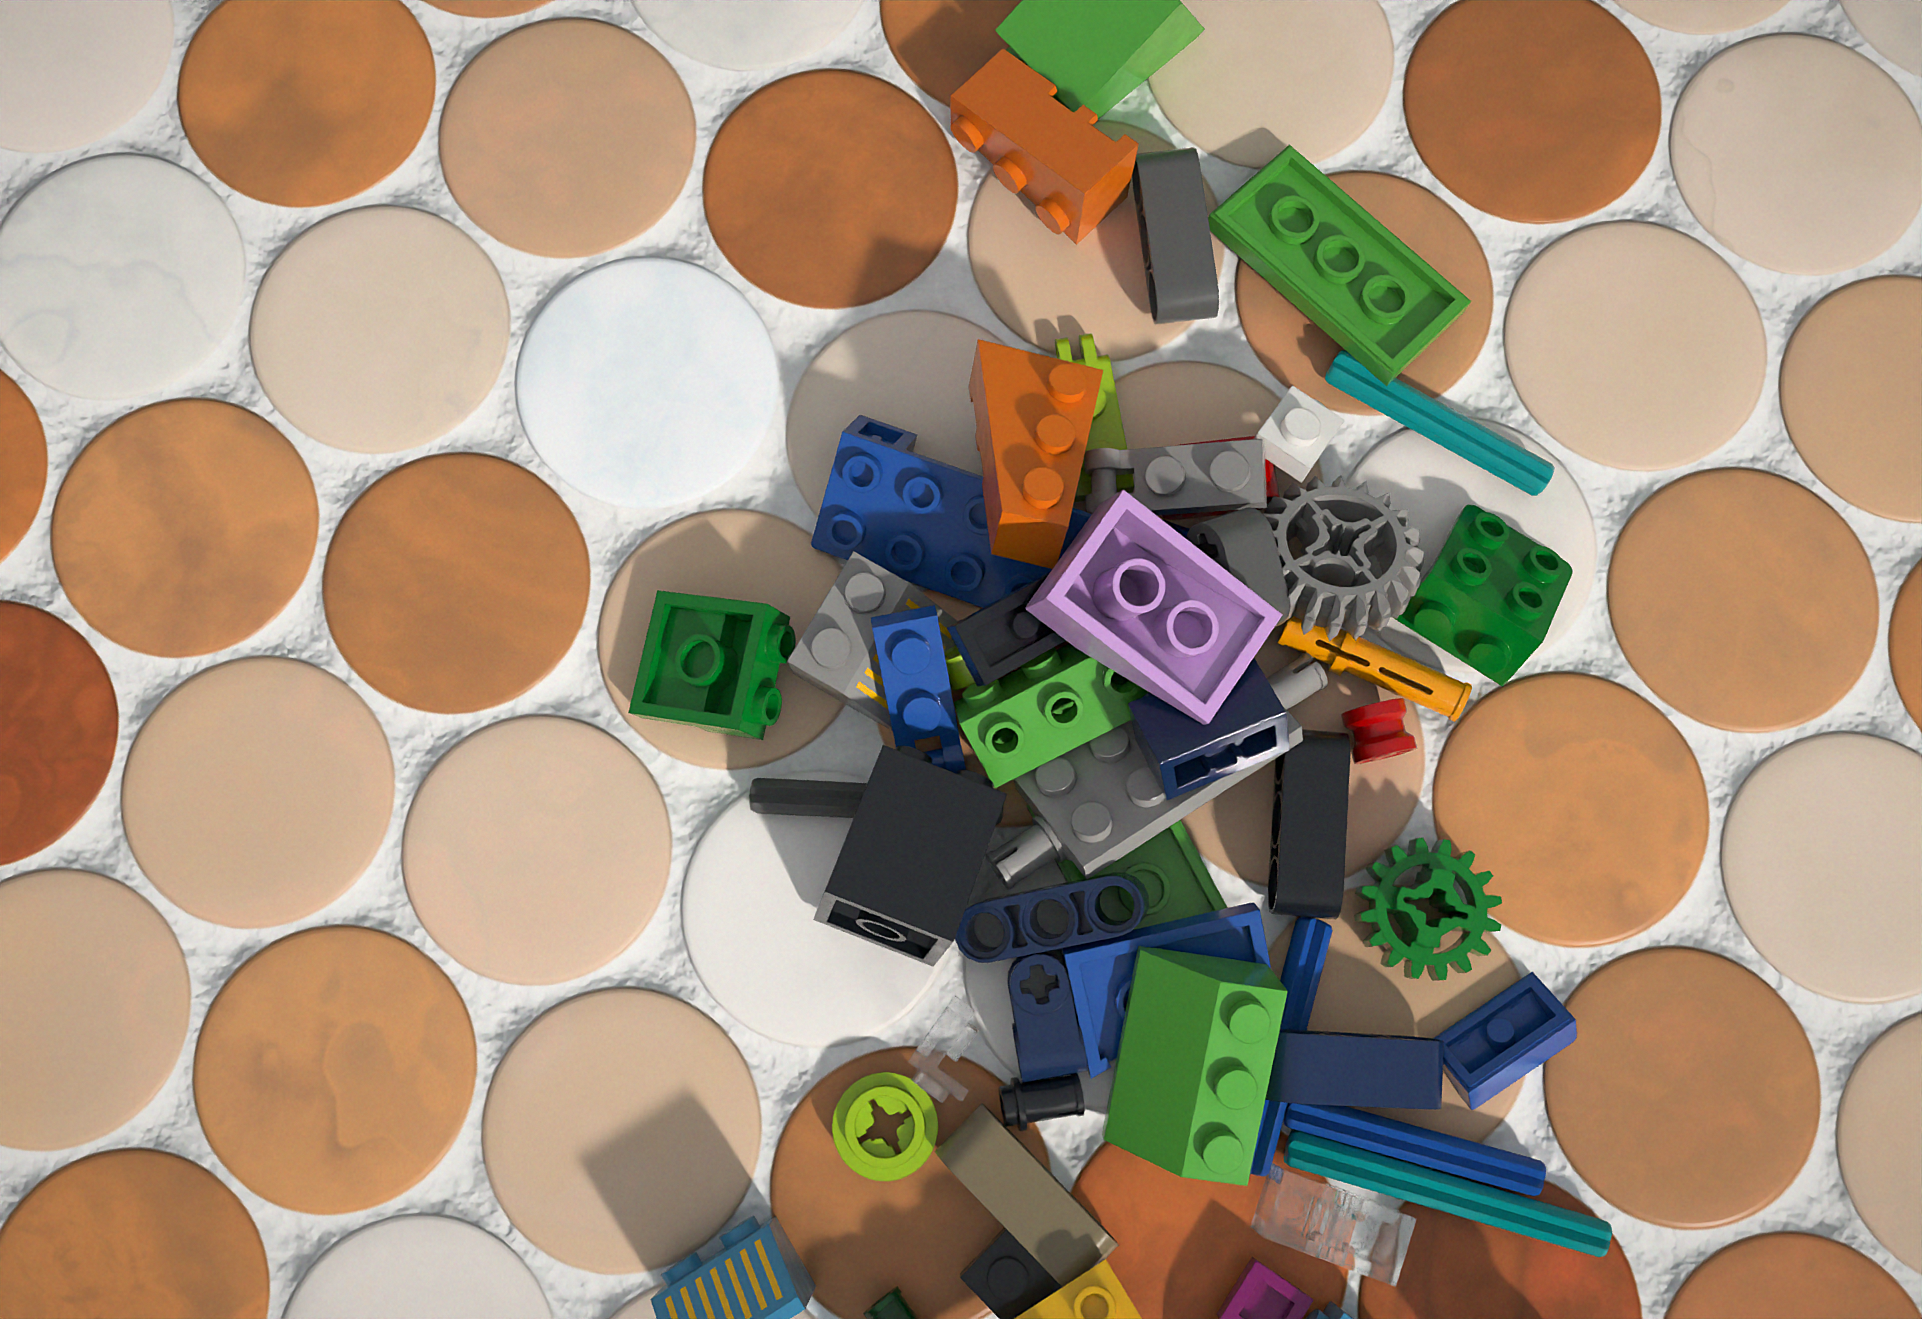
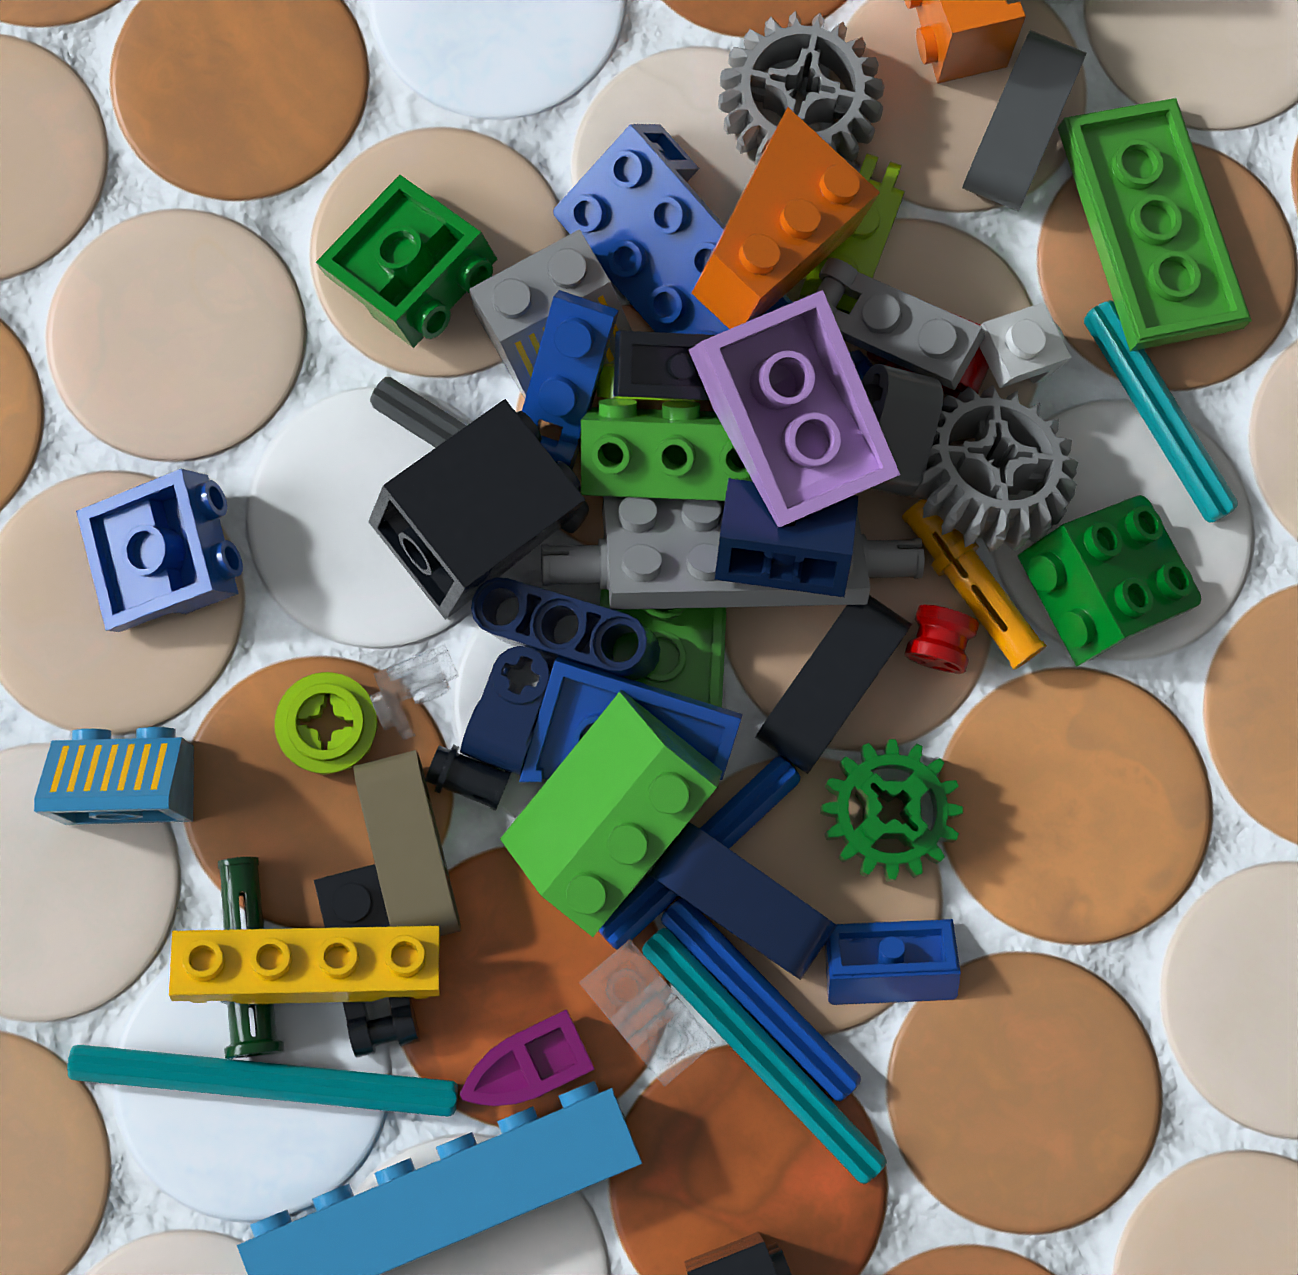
camera: 30 degrees right, 0 degrees up
(642, 1059) = (159, 549): none -> blue plate
(945, 329) = (776, 89): none -> light grey gear

